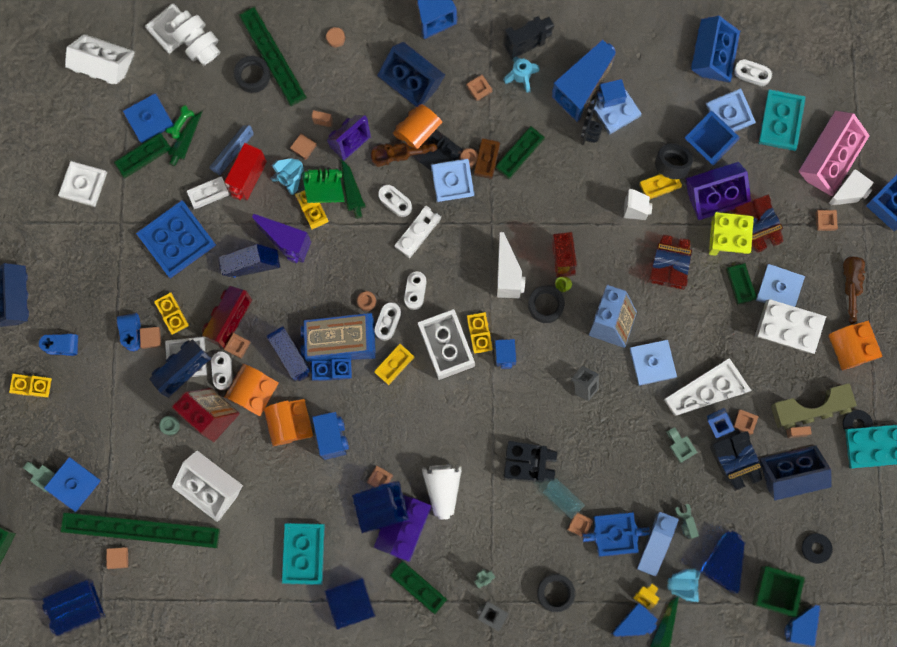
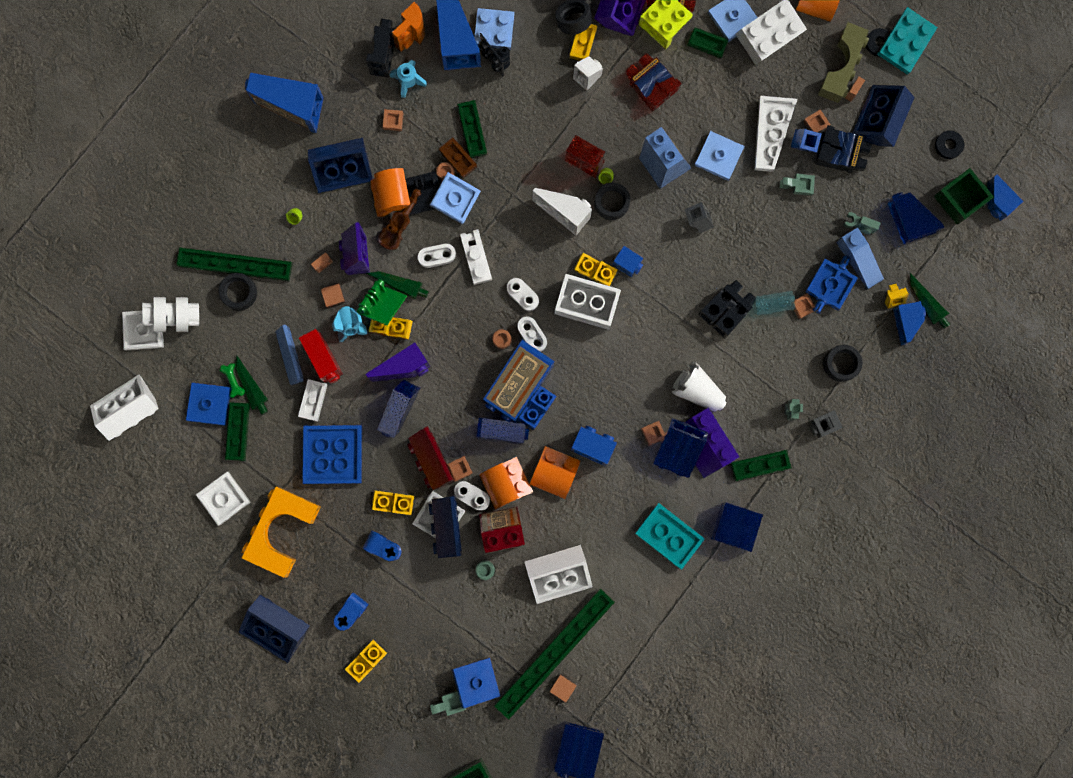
camera: 60 degrees left, 5 degrees up
(61, 239) = (259, 549): none -> light orange arch
(150, 337) = (399, 534): nougat tile -> none
(335, 37) = (259, 201): nougat tile -> none
(343, 71) = (296, 217): none -> lime hinge
(394, 364) = (571, 354): yellow plate -> none
(561, 45) = (410, 29): none -> orange brick
(611, 93) = (482, 20): blue brick -> none
(685, 584) = (908, 261): medium azure brick -> none

